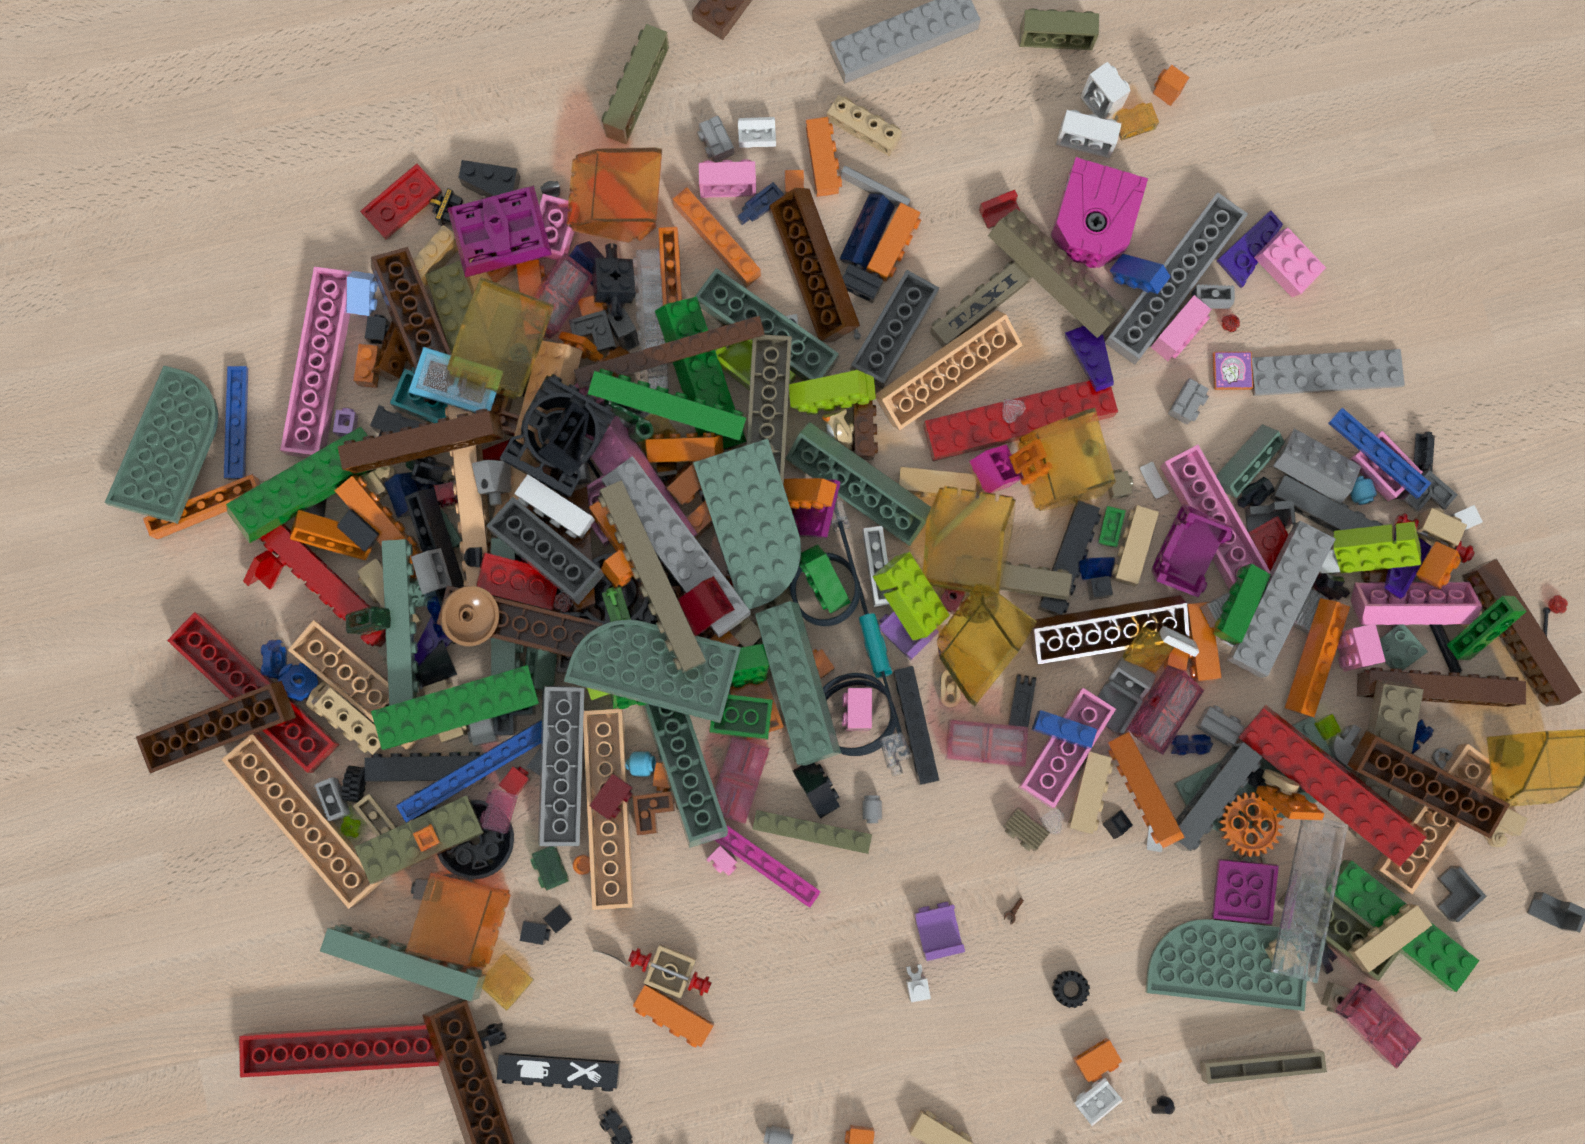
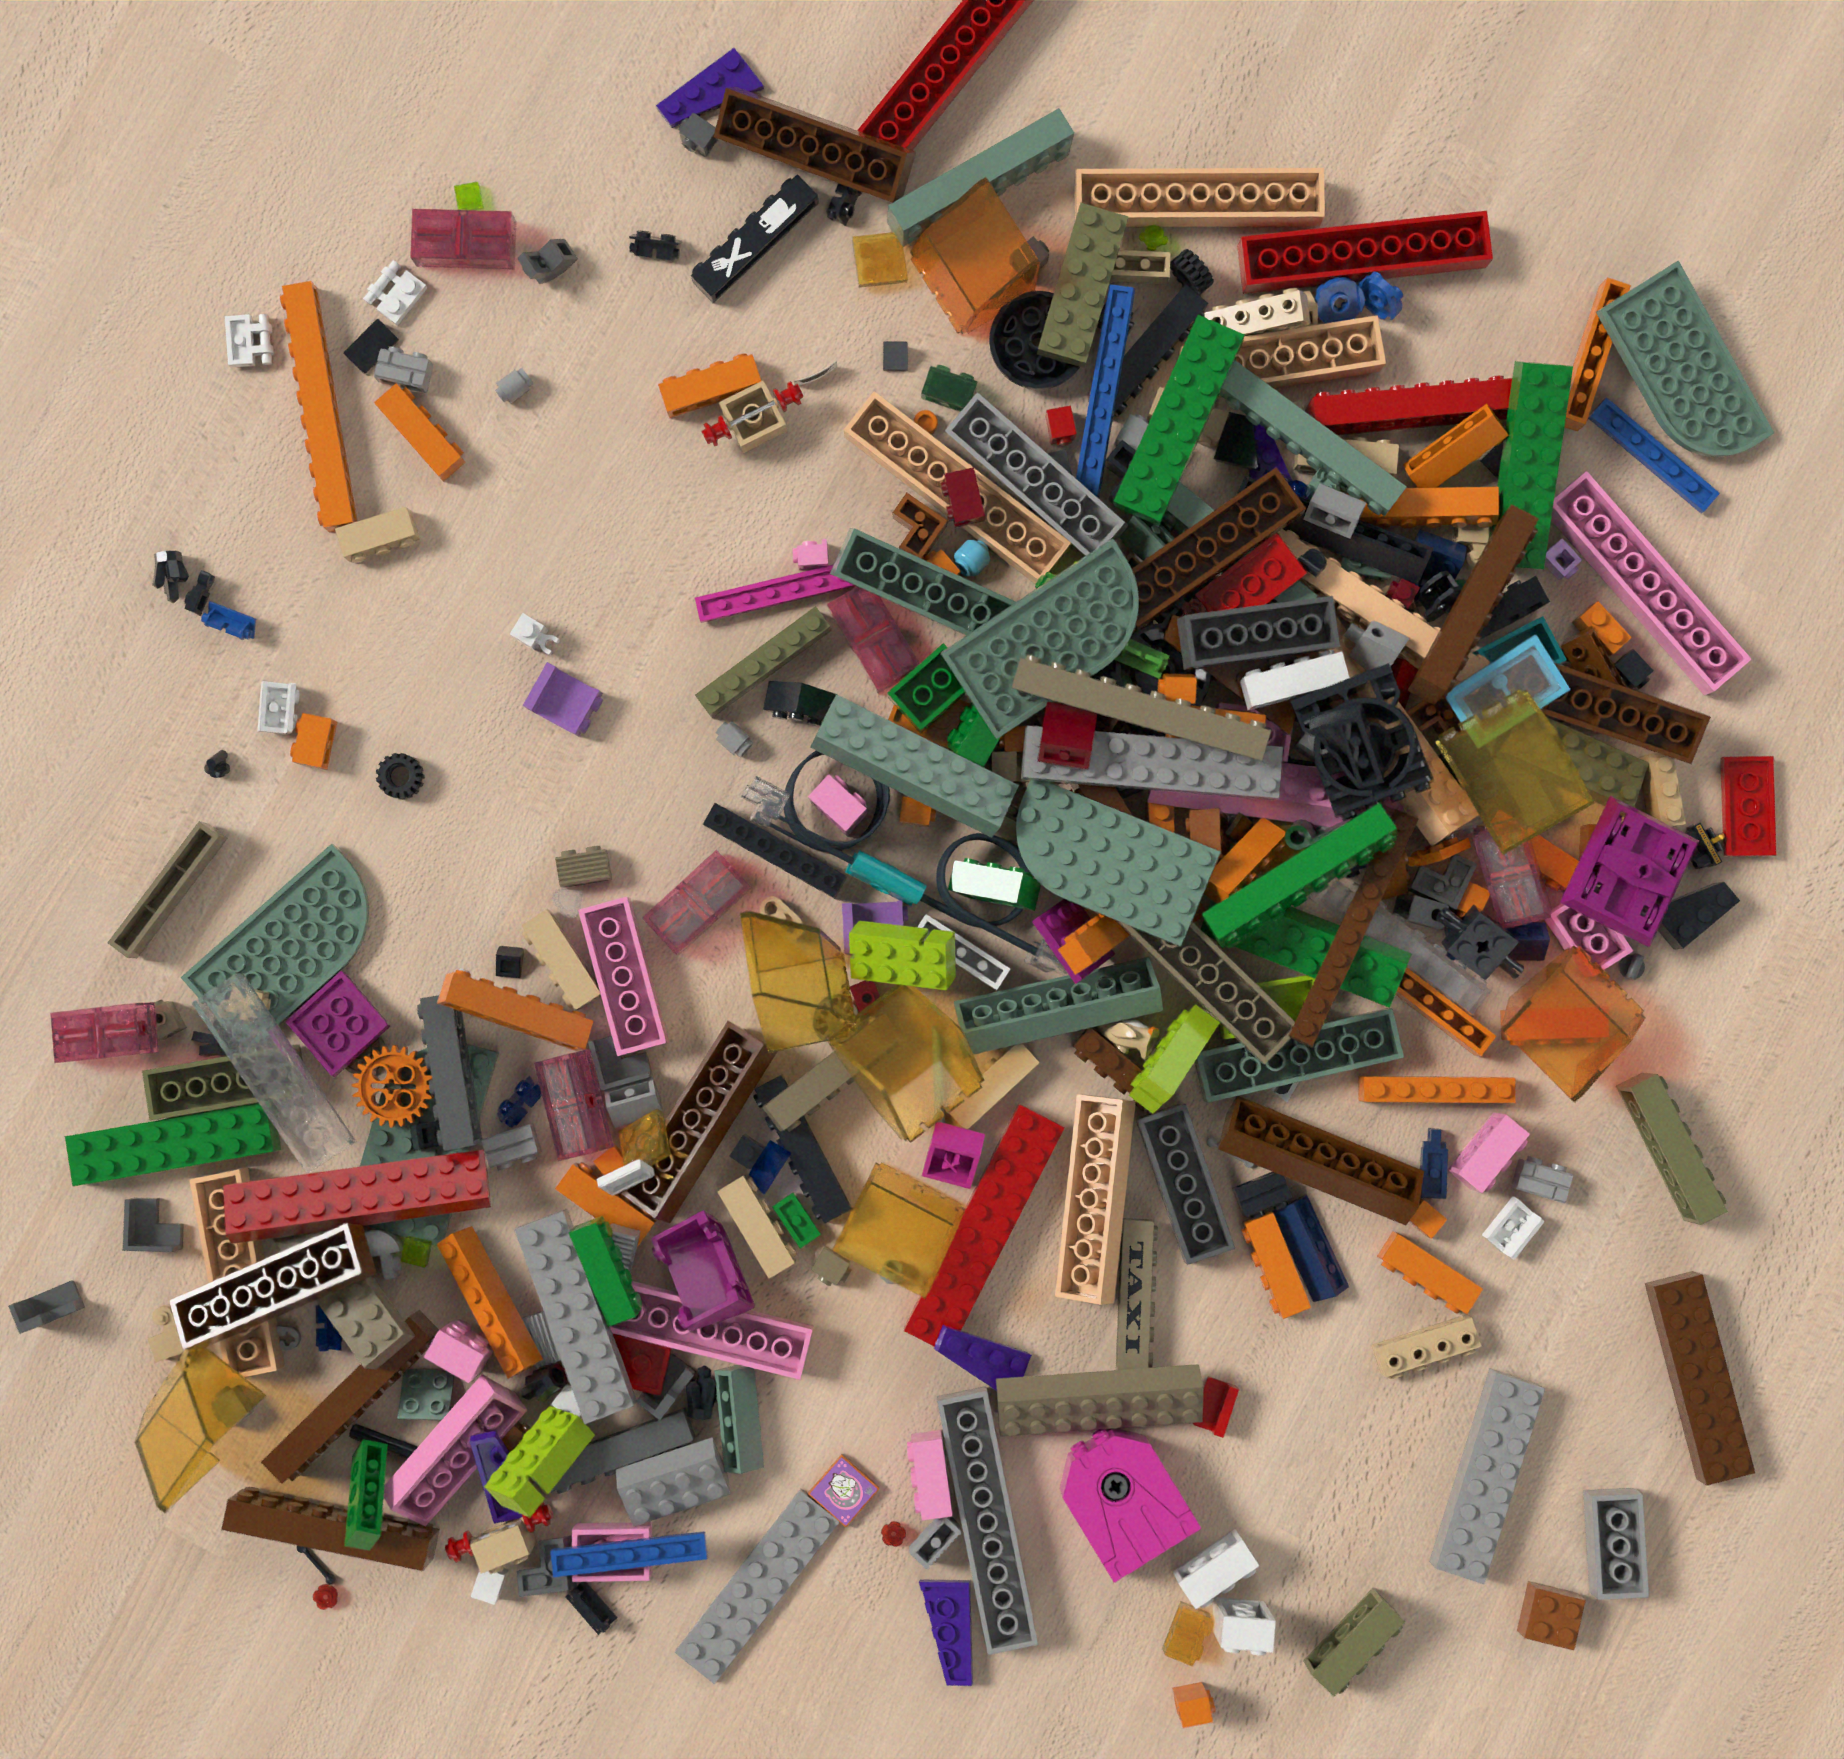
camera: 130 degrees right, 5 degrees up
(215, 726) = (1359, 186): reddish brown brick -> none
(264, 568) = (1480, 361): red panel -> none
(331, 798) = (1195, 238): light grey brick -> none
(358, 530) = (1438, 477): black slope -> none
(361, 293) = (1683, 682): light blue brick -> none
(368, 620) = (1337, 407): clear green brick -> none
(426, 838) = (1077, 289): orange tile -> none
(480, 619) = (1240, 501): medium nougat dish -> none
(499, 811) = (1044, 383): clear pink piece -> none
(535, 932) = (901, 323): black brick -> none
(872, 186) = (1351, 1296): light grey tile -> none
(1012, 409) = (998, 1223): clear tile -> none
(1014, 910) = (519, 787): reddish brown hand -> none
(1022, 701) = (705, 974): black hinge -> none
(1027, 457) = (937, 1193): orange plate -> none
(1064, 729) = (641, 985): blue brick -> none
(1139, 273) = (1023, 1483): blue brick -> none
(1154, 480) = (805, 1307): white sticker -> none
(1188, 401) = (851, 1414): light grey brick -> none
(1276, 779) = (405, 1149): tan plate -> none
(1290, 262) = (900, 1652): bright pink brick -> none
(1291, 806) = (377, 1138): orange plate -> none
(1363, 491) = (608, 1506): medium azure head -> none
(1389, 937) = (170, 1117): tan brick -> none
(1438, 565) = (467, 1507): orange brick -> none

